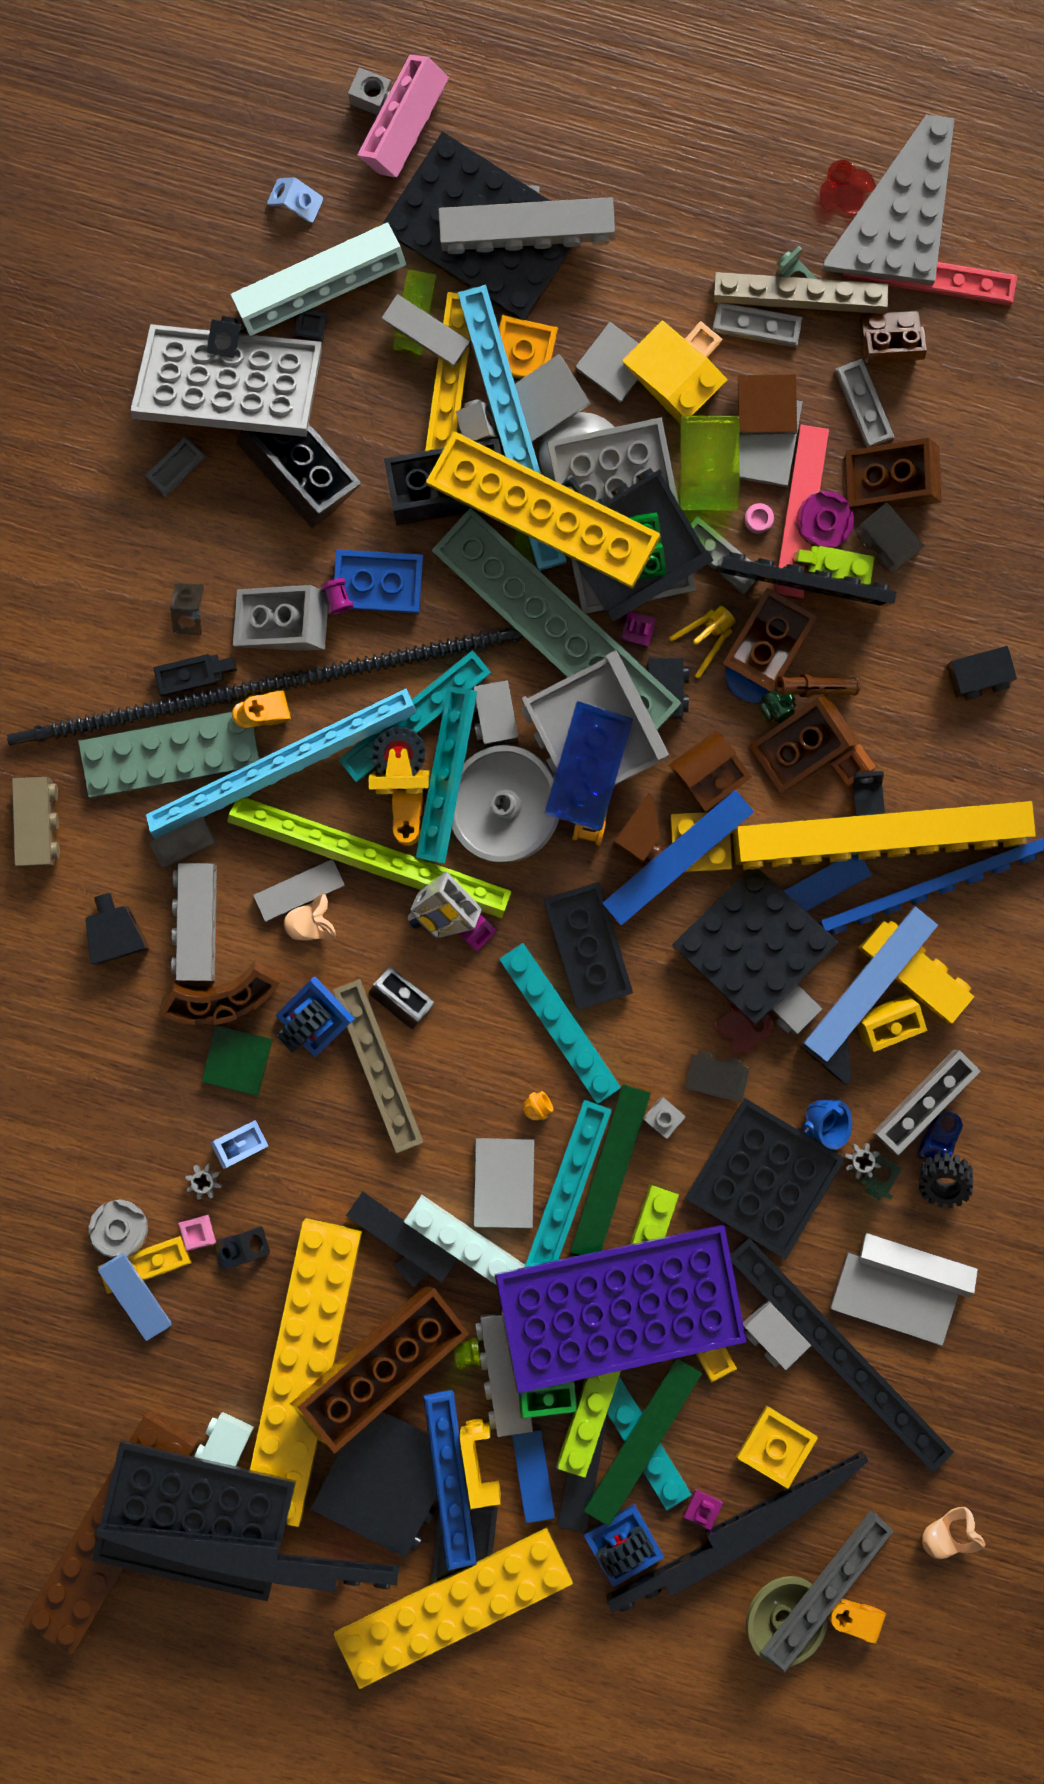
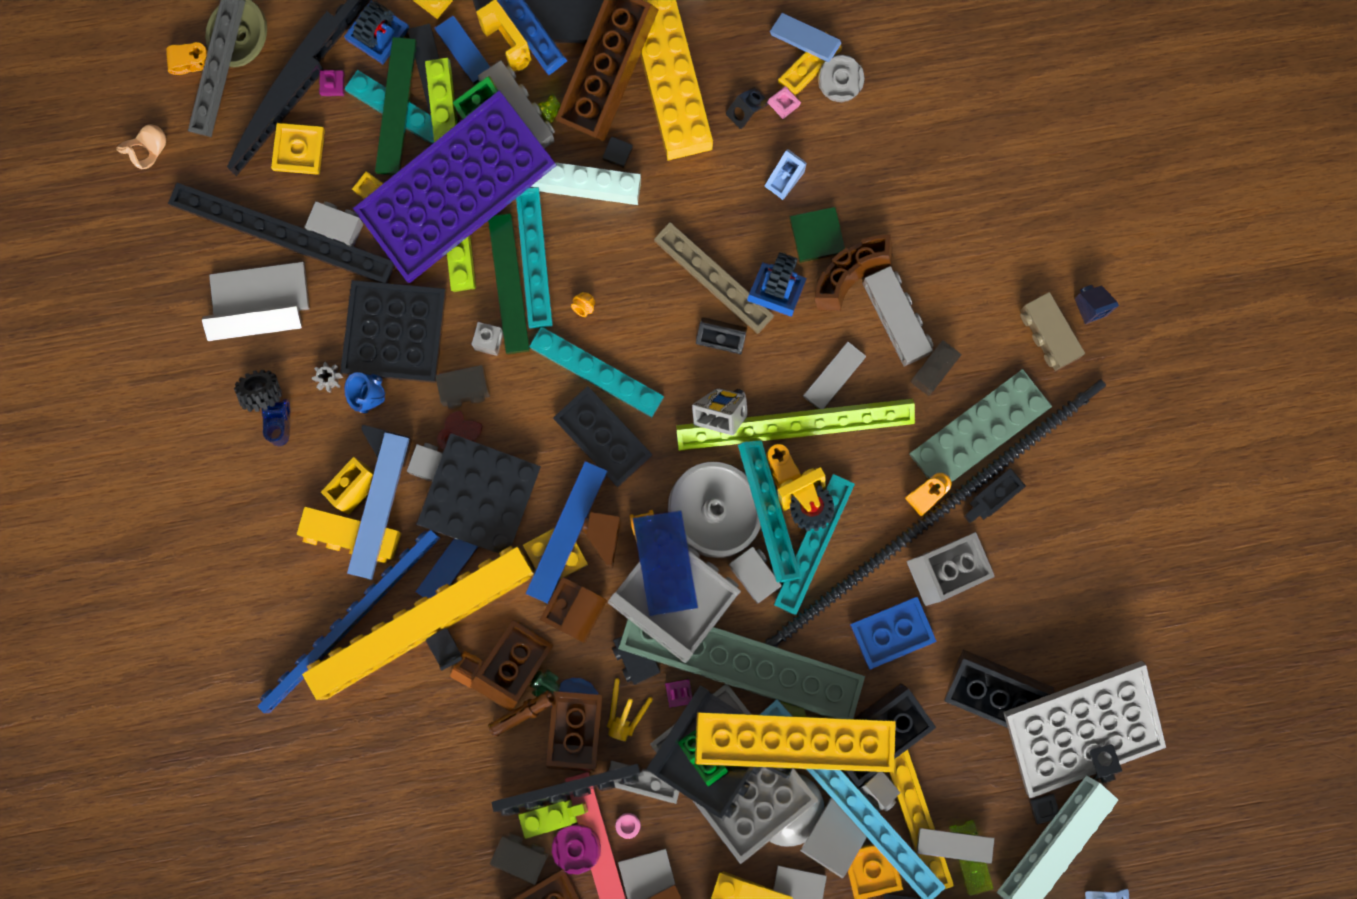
camera: 155 degrees right, 5 degrees down
(113, 932) = (953, 281): black torso -> none
(175, 466) = (1089, 647): dark grey tile -> none
(187, 603) = (1026, 545): clear smoke bracket -> none
(196, 1185) = (802, 134): light grey gear -> none
(281, 763) = (894, 460): medium azure plate -> none
(306, 921) = (819, 356): light nougat piece -> none
(337, 596) = (917, 604): magenta bush -> none
(401, 1237) = (650, 168): black tile -> none
(480, 935) = (685, 409): magenta tile -> none
(504, 1183) = (582, 239): light grey tile -> none
(709, 463) = (686, 847): clear neon green slope -> none
(880, 1189) = (305, 363): clear green bracket -> none
(926, 1101) = (298, 440): light grey brick -> none
(982, 672) = (400, 787): black brick -> none

